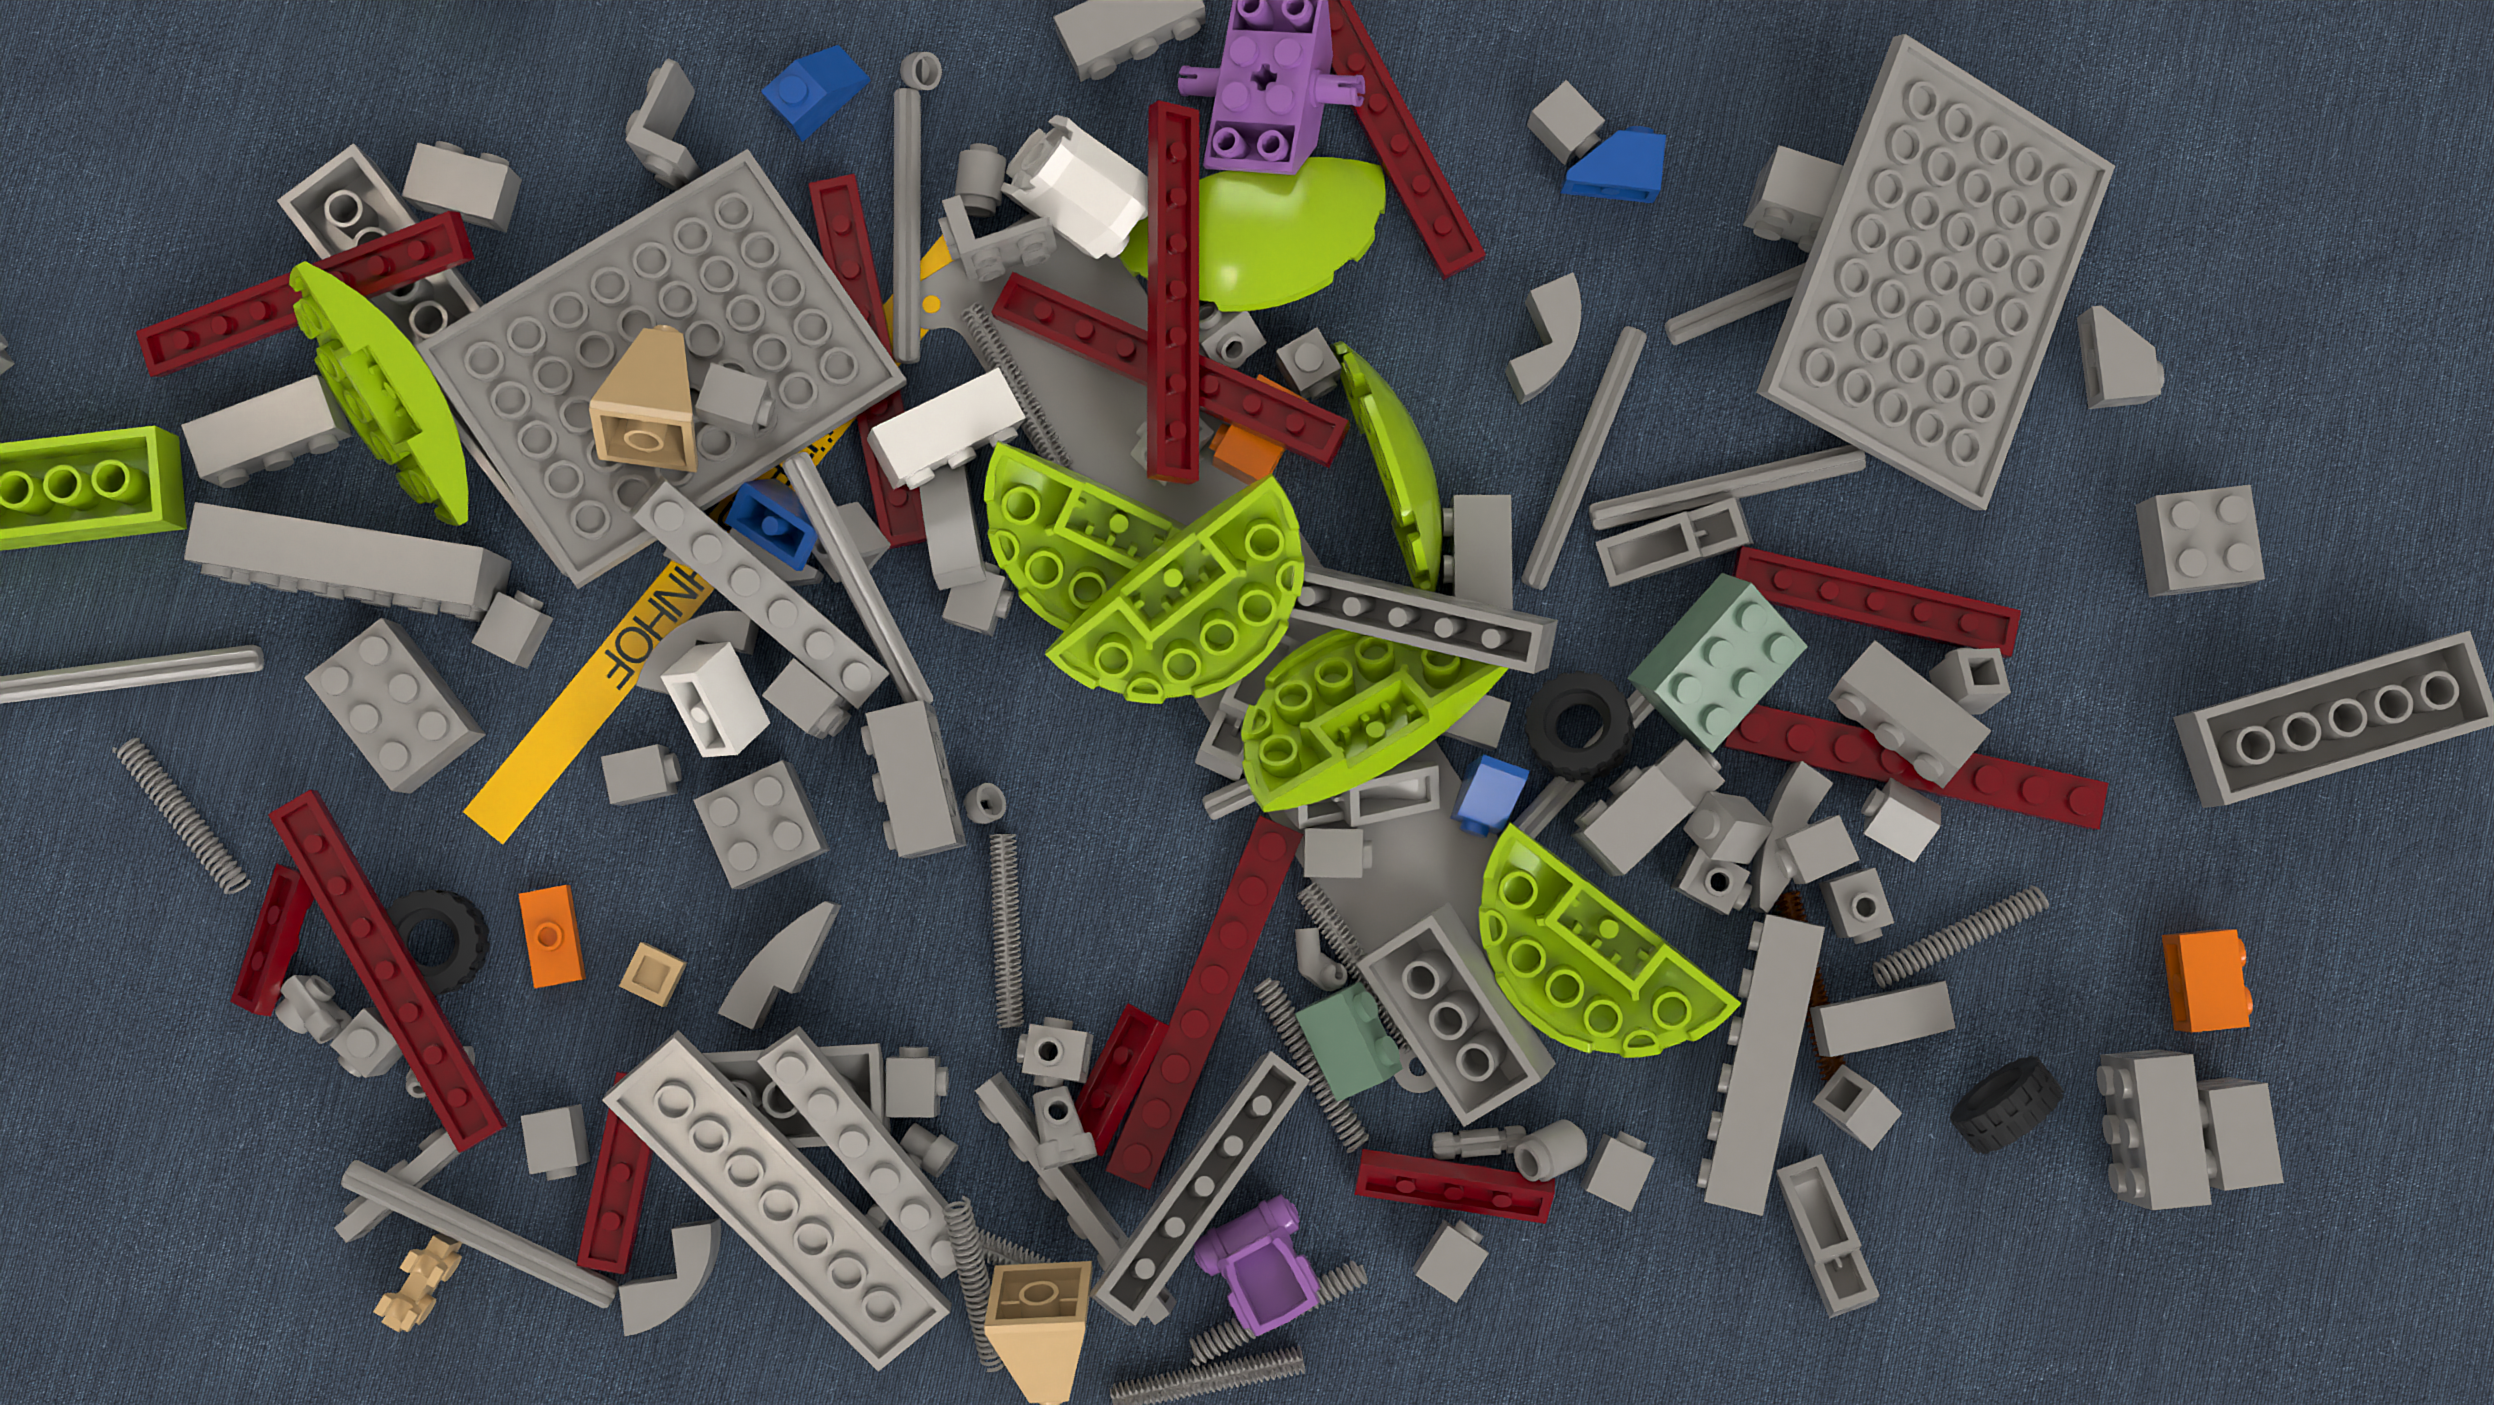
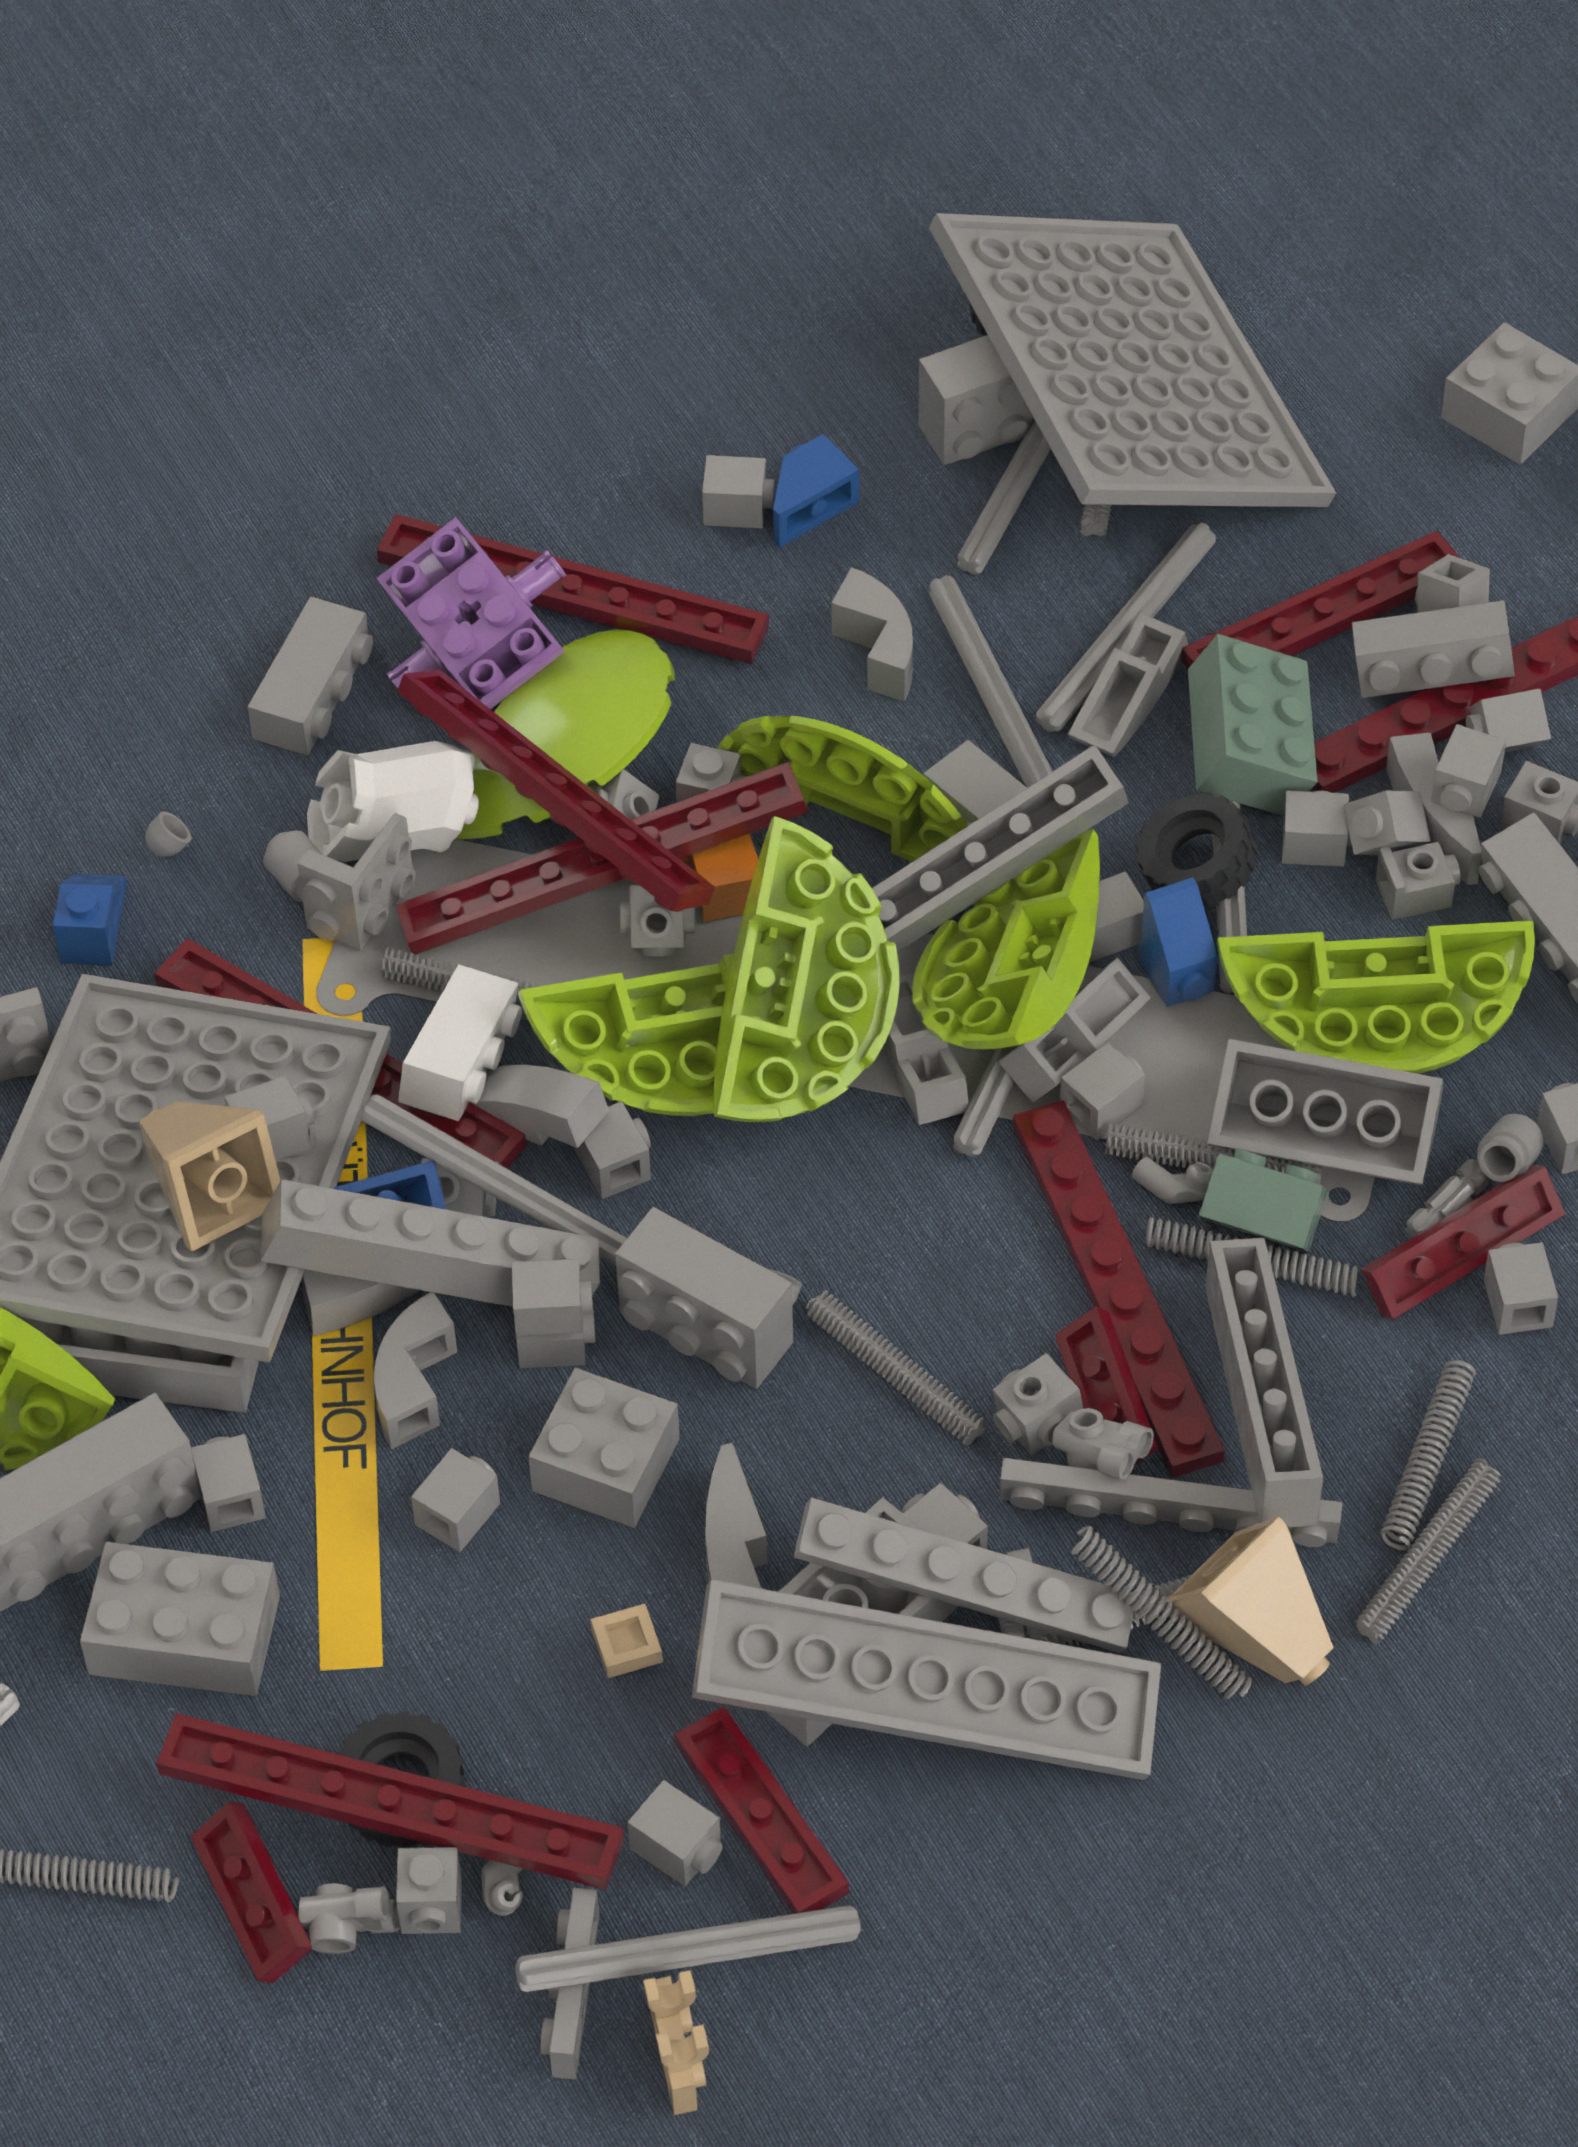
camera: 40 degrees left, 30 degrees down
(552, 936) = (504, 1692): orange plate -> none
(657, 1298) = (897, 1879): light grey brick -> none
(715, 699) = (470, 1370): white brick -> none
(907, 225) = (259, 938): light grey axle -> none
(1261, 1266) = (1378, 1410): medium lavender piece -> none
(1631, 820) = (1306, 869): light grey brick -> none
(2116, 361) = (1319, 334): light grey slope -> none

